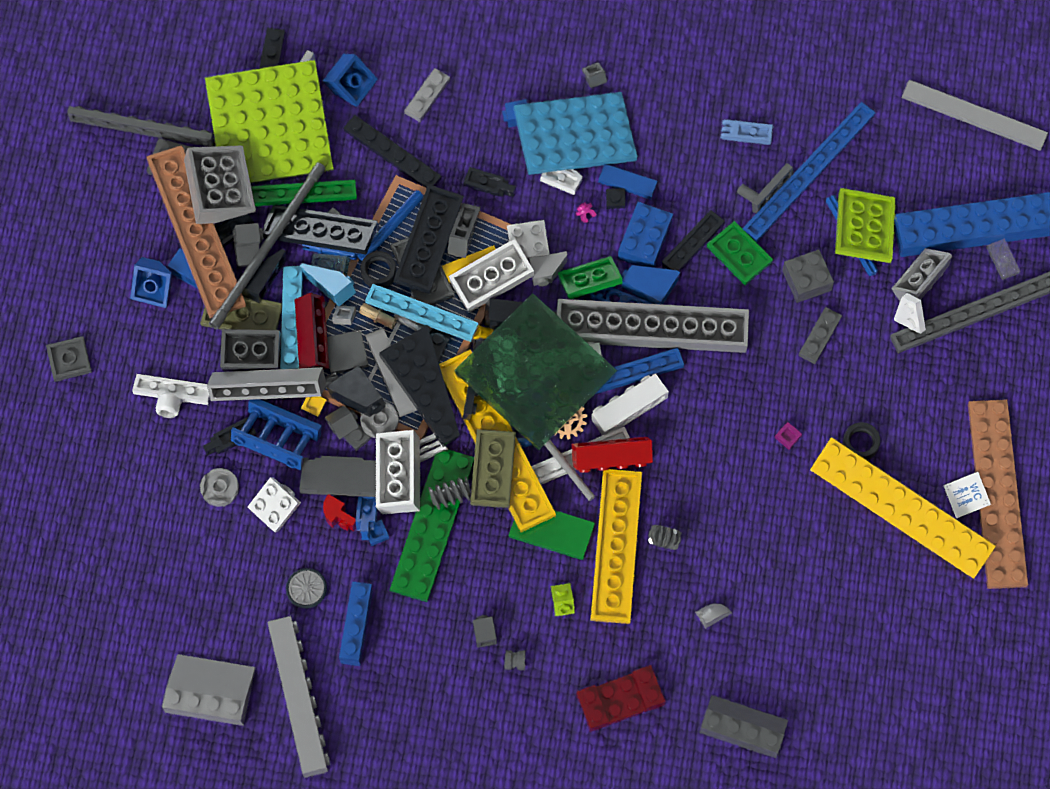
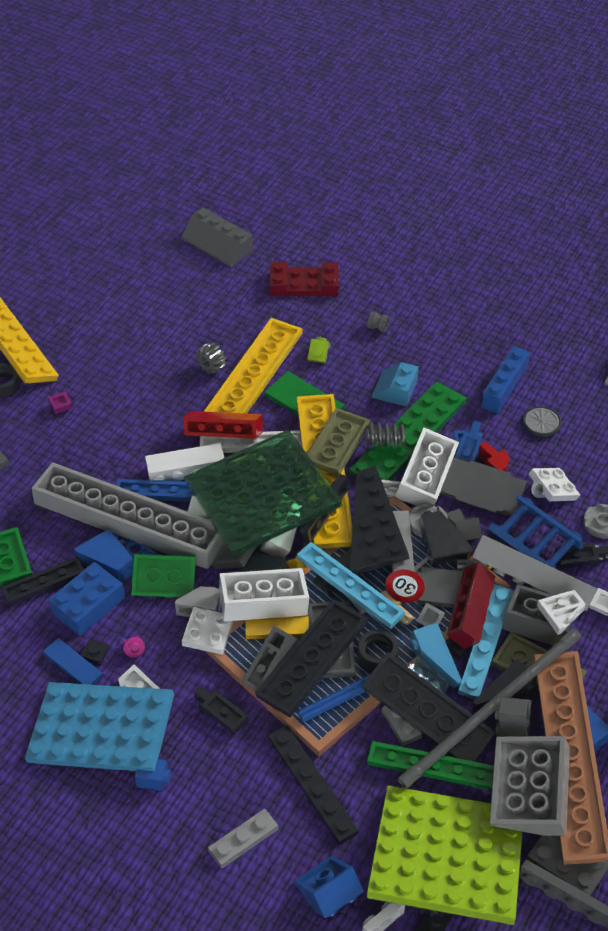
camera: 160 degrees left, 20 degrees down
(231, 344) = (561, 609): none -> white wing
(297, 696) = (572, 350): light grey brick -> none
(467, 579) = (397, 384): none -> dark azure slope
(484, 631) = (395, 345): dark grey brick -> none
(569, 470) = (266, 424): light grey bar -> none
(594, 75) = (42, 794): dark grey slope -> none
(712, 613) = (199, 307): light grey brick -> none

